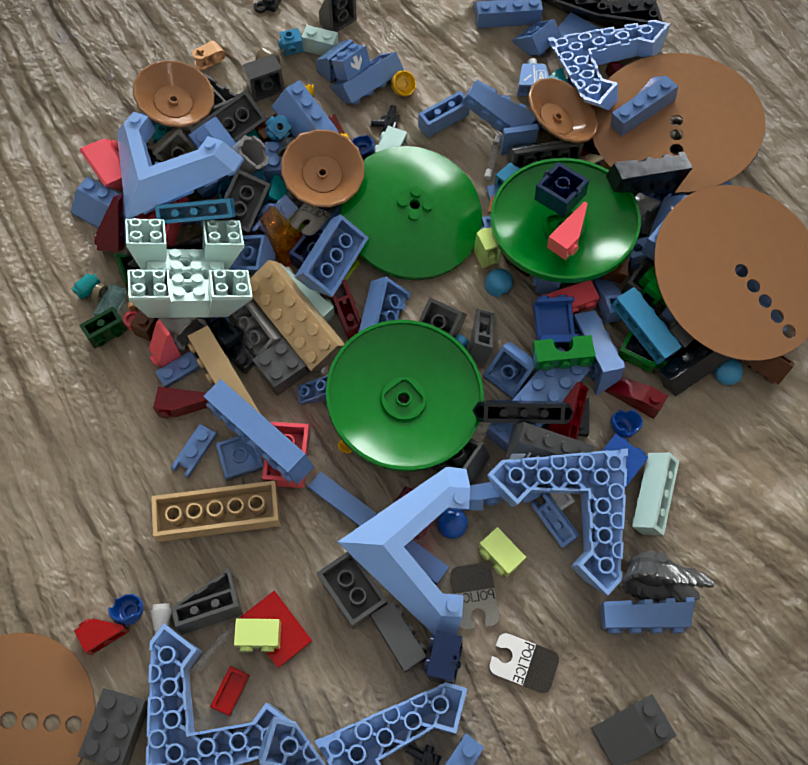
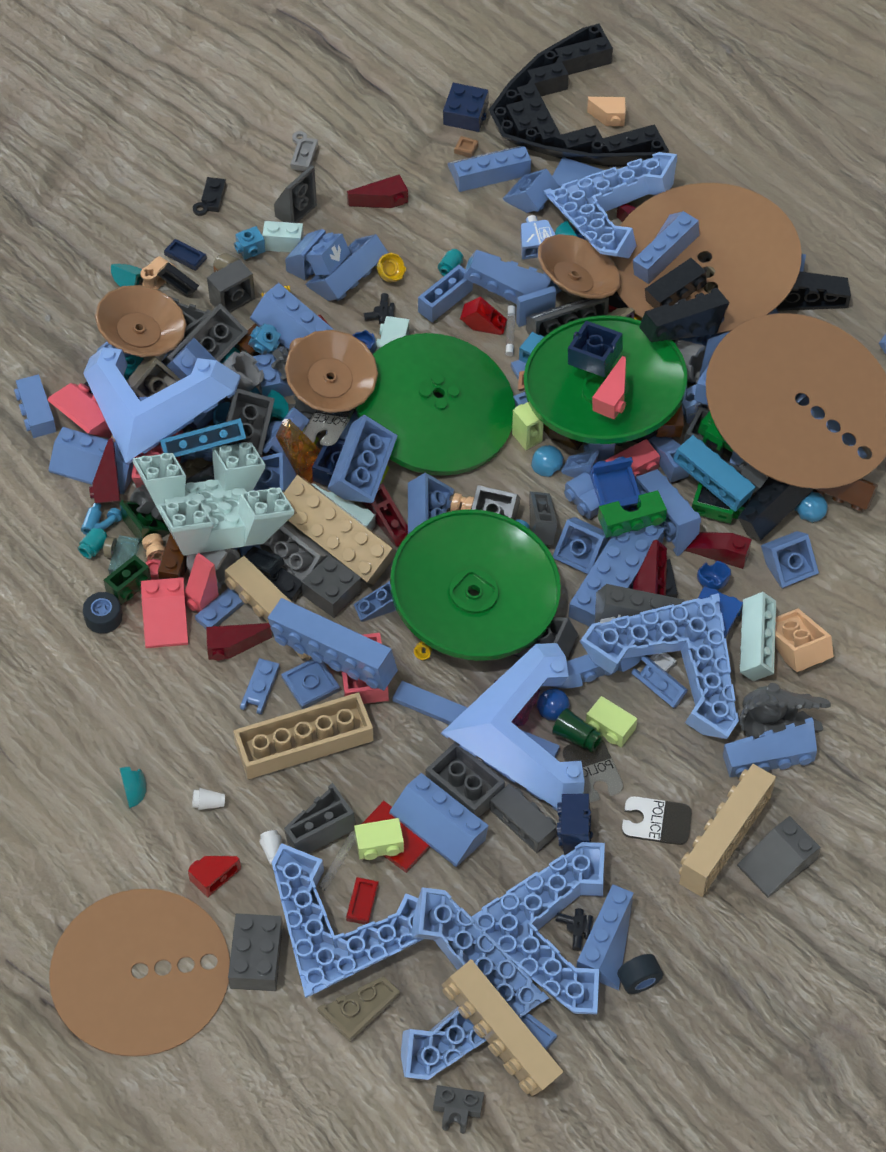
camera: 10 degrees left, 10 degrees down
(54, 528) = (134, 785): none -> teal brick
(73, 162) = (34, 406): none -> medium blue brick
(75, 353) = (102, 612): none -> black wheel
(95, 261) = (93, 517): none -> dark azure plant
(115, 556) = (207, 799): none -> white cone
(127, 609) = (235, 843): blue hair -> none
(128, 364) = (164, 612): none -> coral slope
(182, 52) = (126, 274): none -> teal brick
(221, 63) = (177, 279): none -> black tile
(237, 43) = (185, 254): none -> dark blue tile
(319, 624) = (439, 820): none -> medium blue slope
(412, 18) = (380, 194): none -> dark red slope
(413, 310) = (461, 503): none -> light nougat wheel
(455, 85) = (450, 261): none -> teal brick
(468, 557) = (577, 731): none -> dark green plant
(471, 141) = (483, 317): none -> red slope
(522, 319) = (582, 493): none -> medium blue brick
(523, 411) = (598, 577): black brick -> none
(527, 292) = (580, 463): none -> medium blue slope
(591, 693) = (726, 830): none -> tan brick
(646, 142) = (676, 284): none -> black brick
(696, 504) = (801, 640): none -> light nougat slope
(699, 419) = (790, 558): none -> medium blue slope
(770, 170) = (817, 292): none -> black wedge

